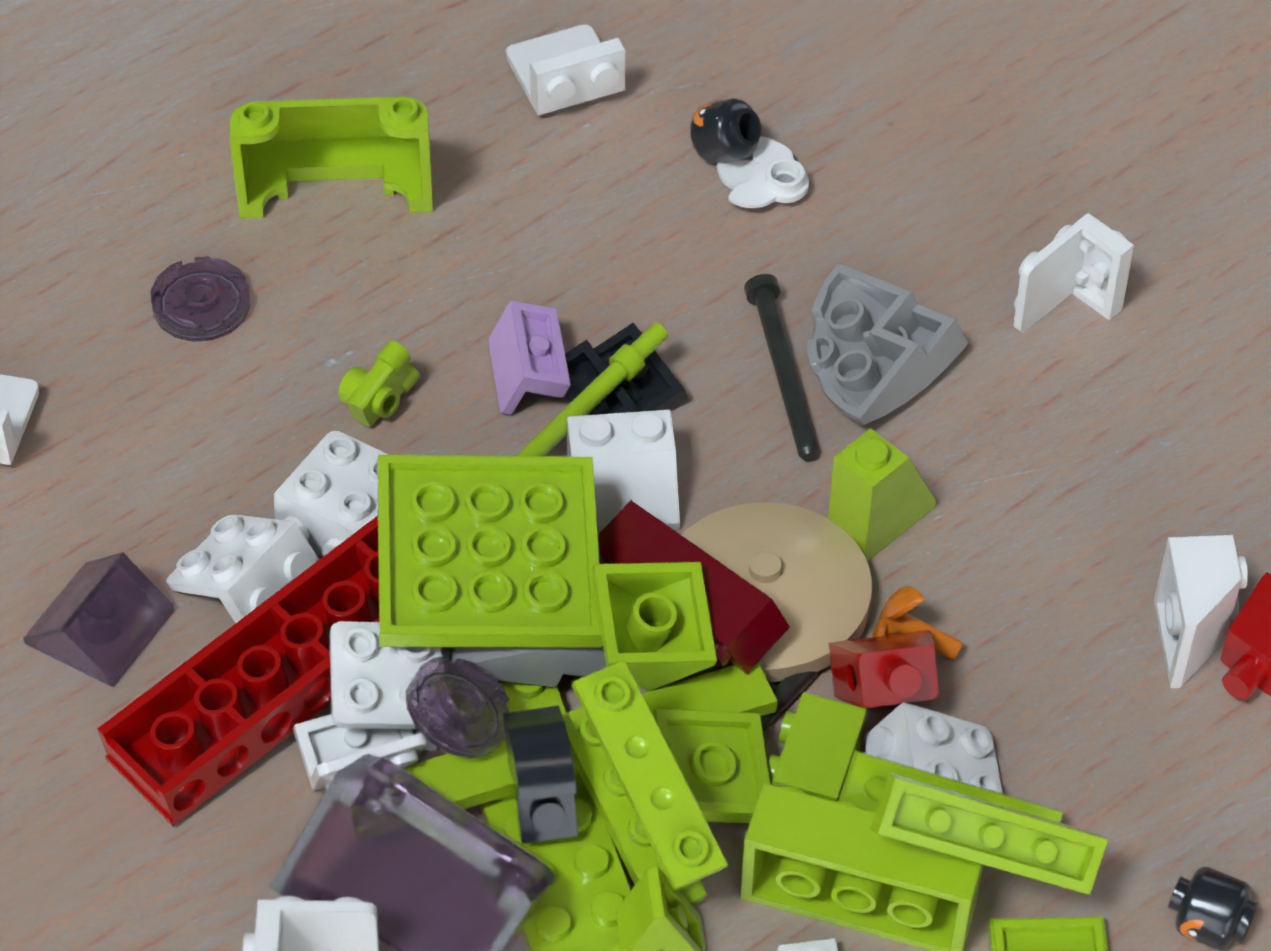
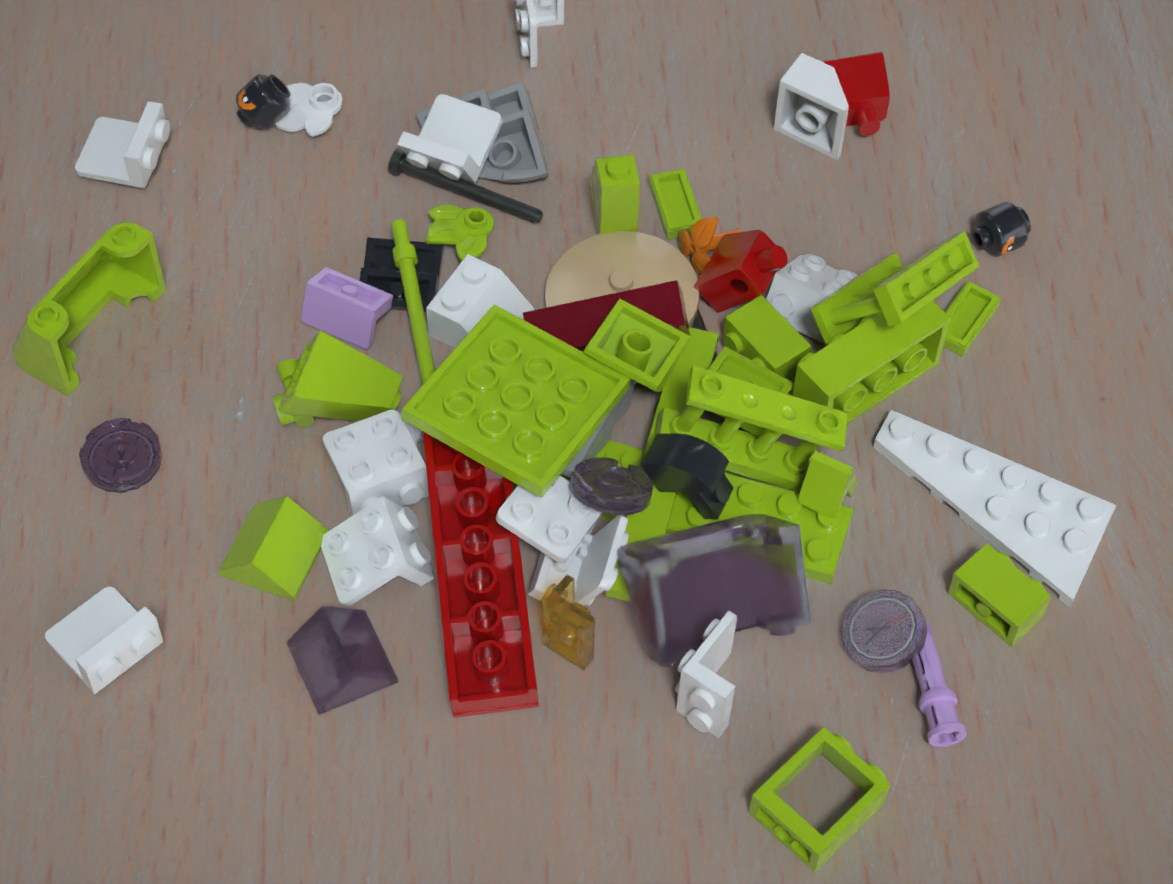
camera: 55 degrees left, 5 degrees up
(185, 488) = (275, 548): none -> lime slope
(272, 769) = (567, 624): none -> clear yellow bracket
(405, 398) = (339, 383): none -> lime slope
(717, 393) = (460, 227): none -> lime plate
(820, 313) = (453, 138): none -> white bracket
(948, 565) = (674, 201): none -> lime tile

